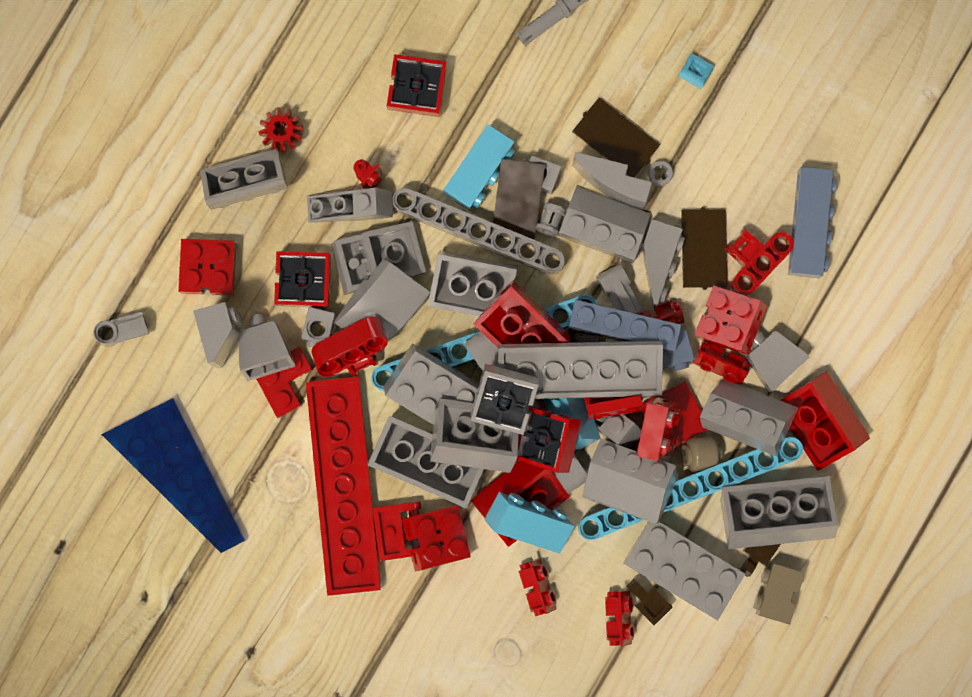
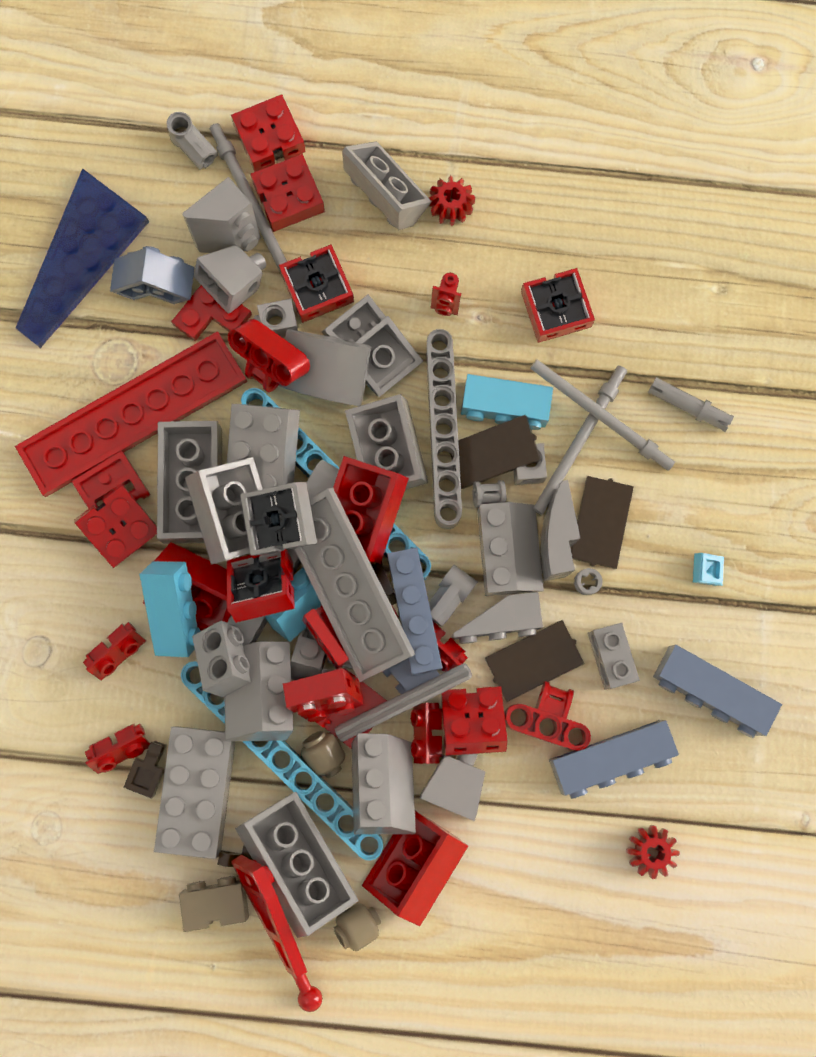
camera: 60 degrees right, 5 degrees down
(142, 302) = (227, 152): none -> light grey bar
(144, 259) = (268, 132): none -> red piece
(232, 416) = (152, 274): none -> sand blue brick
(350, 206) = (410, 297): light grey slope -> none
(510, 81) = (606, 394): none -> light grey bar
(571, 71) = (646, 447): none -> light grey bar
(590, 504) = (221, 659): none -> light grey brick
(691, 369) = (403, 702): none -> light grey axle
(731, 183) = (613, 656): none -> light grey brick
(779, 549) = (258, 886): none -> red plate
(797, 113) = (718, 691): none -> sand blue brick
(848, 487) = (357, 927): none -> dark tan head
(888, 223) = (653, 863): none -> red gear

